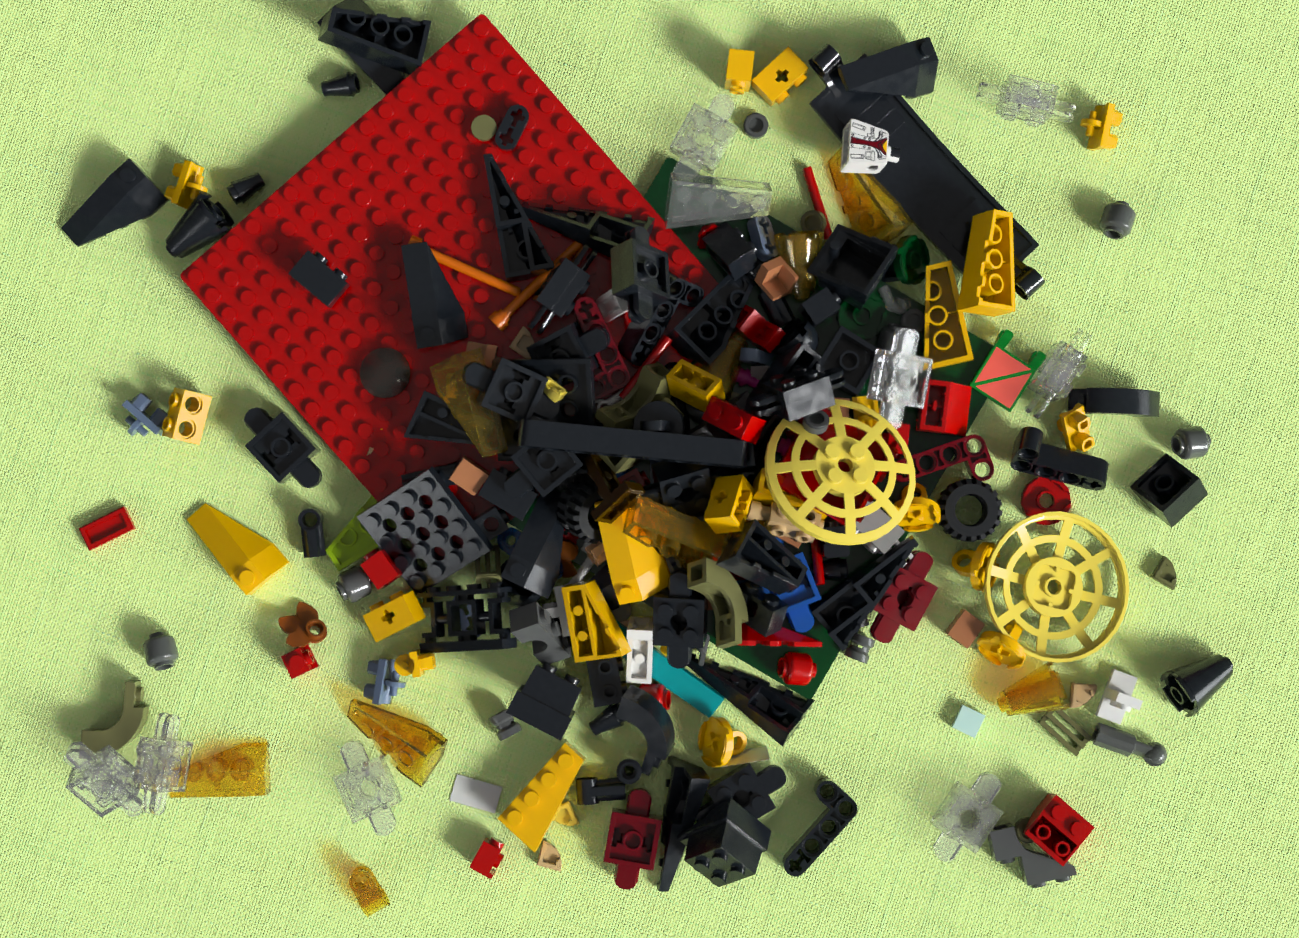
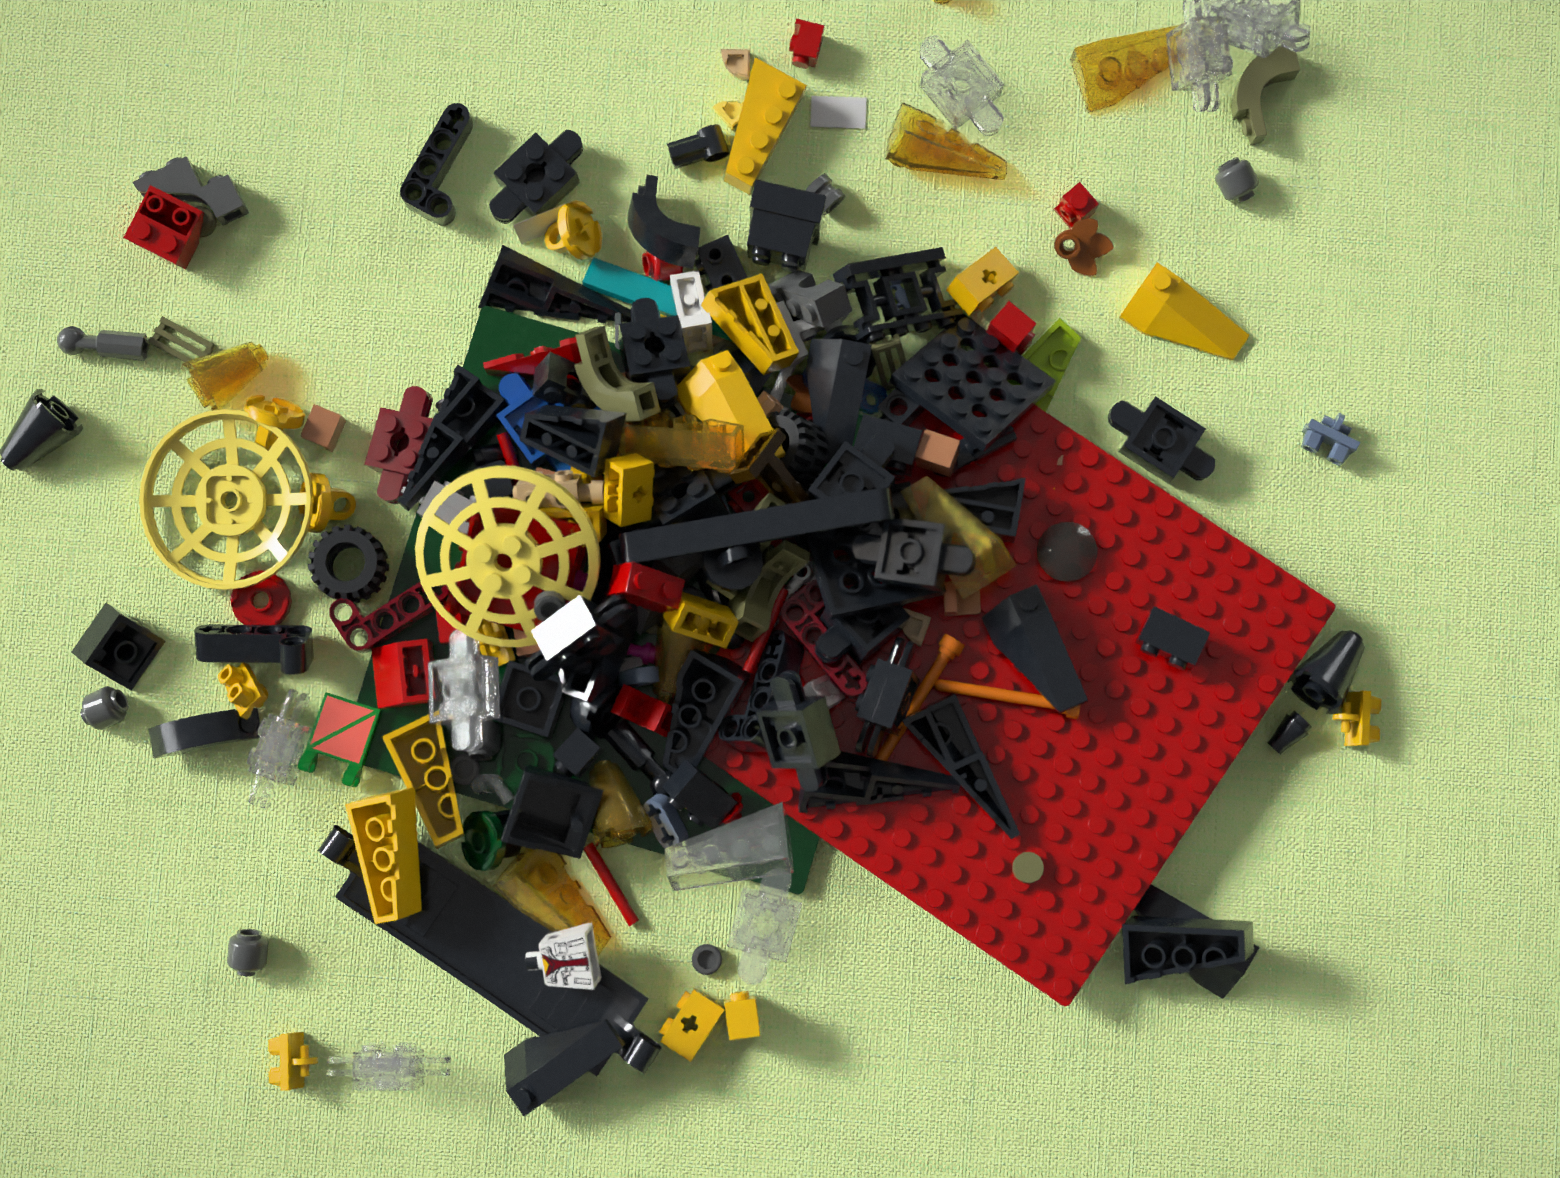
camera: 165 degrees right, 5 degrees down
(107, 528) = (1336, 303): red tile -> none
(117, 202) = (1432, 677): black wedge -> none
(193, 417) = (1274, 450): yellow brick -> none
(312, 536) = (1101, 351): black piece -> none
(342, 85) = (1208, 883): black cone -> none
(353, 584) = (1039, 306): dark grey head -> none
(386, 681) = (971, 208): sand blue hips -> none
(414, 663) = (944, 234): yellow hips -> none
(507, 124) = (1002, 877): black beam -> none
(554, 390) = (864, 569): light yellow tile -> none
(606, 720) = (711, 225): black cone -> none
(629, 778) = (668, 168): black cone -> none
(632, 838) = (647, 101): dark red brick -> none
(682, 806) = (601, 146): black wedge -> none
(726, 844) = (539, 116): black piece -> none
(776, 278) = (637, 774): nougat panel -> none
(796, 668) = (506, 333): red head -> none
(813, 221) = (610, 860): olive tile -> none
(858, 653) = (439, 376): dark grey wheel -> none
(921, 513) = (401, 545): yellow tile -> none
(966, 817) = (273, 217): clear brick -> none
(968, 721) = (295, 326): light aqua tile -> none
(1081, 693) = (171, 389): tan tile -> none
(1117, 697) = (129, 393): white bracket -> none
(1165, 573) = (102, 550): olive tile -> none

